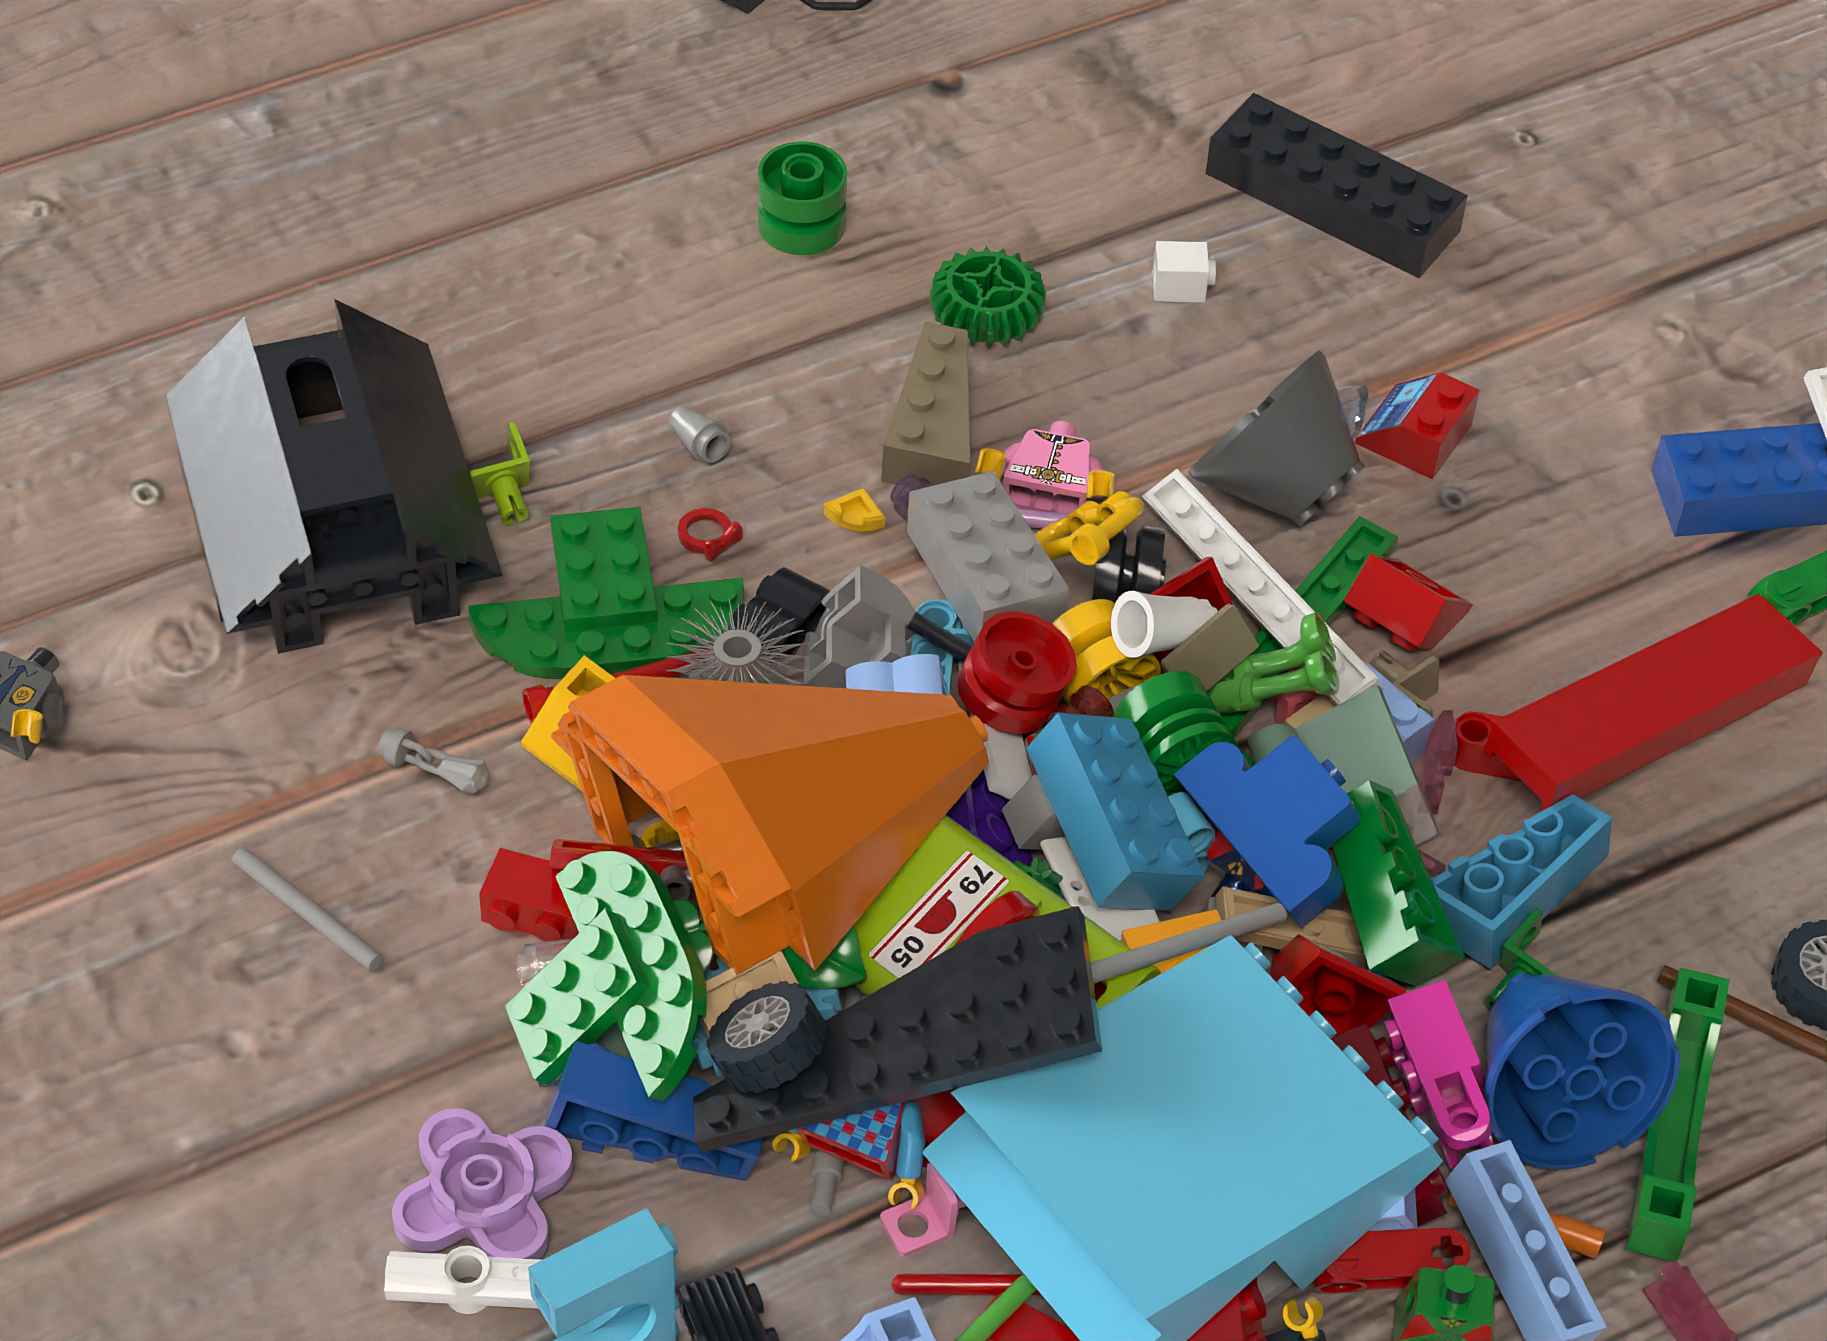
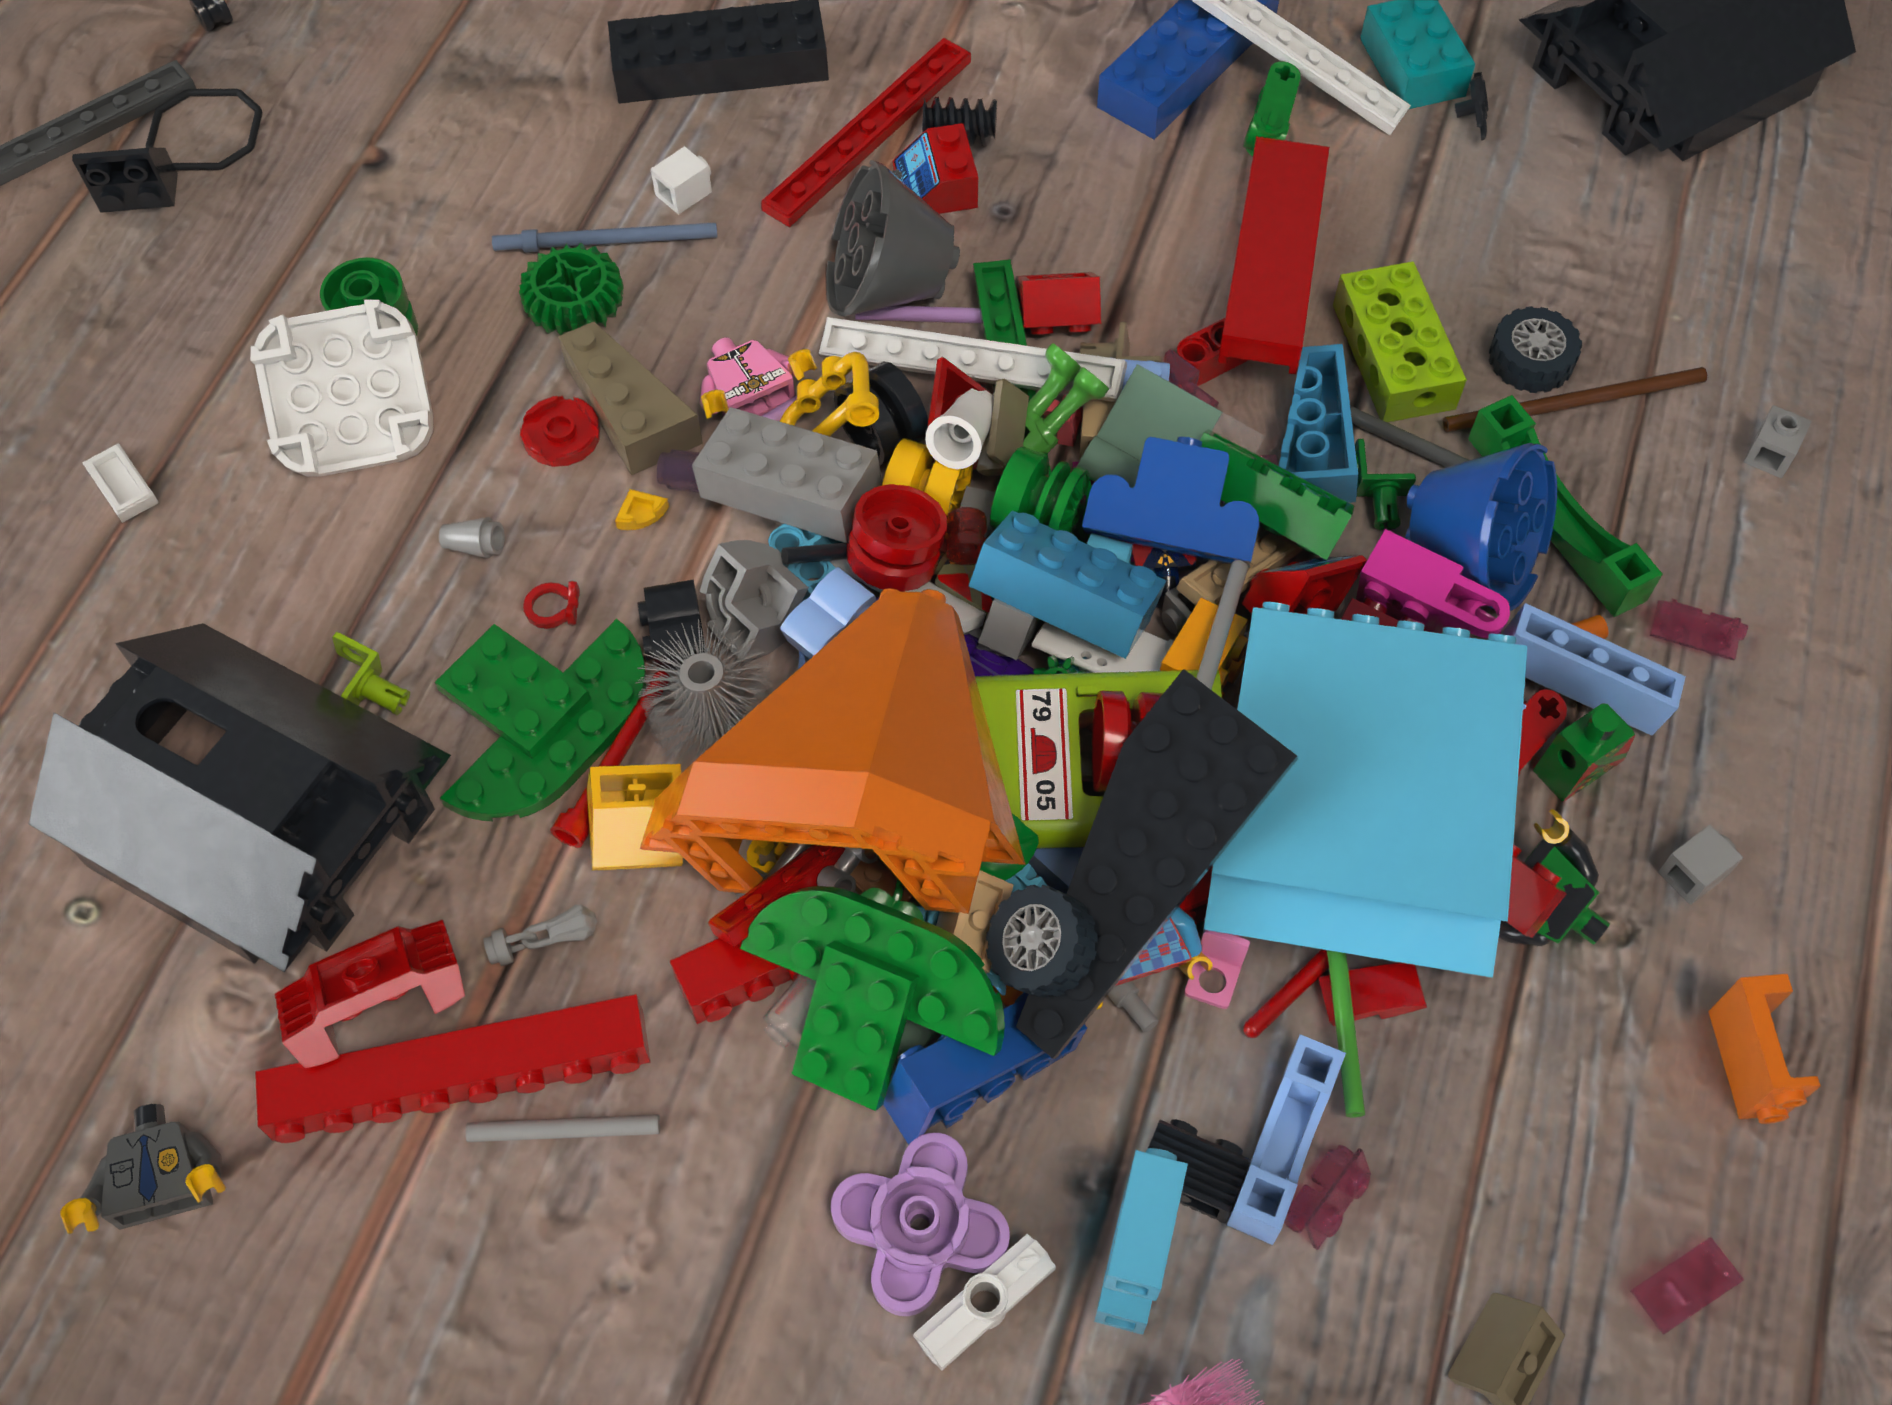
camera: 40 degrees left, 10 degrees up
(278, 802) = (452, 1069): none -> red brick
(327, 699) = (361, 978): none -> red plate
(484, 201) = (120, 482): none -> white tile
(713, 244) = (343, 389): none -> white tile
(858, 403) = (560, 431): none -> red tile
(1003, 236) = (532, 241): none -> sand blue bar
(1271, 528) = (923, 314): none -> lavender bar
(1406, 343) = (865, 132): none -> red tile
(1496, 400) = (976, 121): none -> black piece
(1598, 940) = (1405, 439): none -> dark grey bar
(1678, 916) = (1398, 342): none -> lime brick

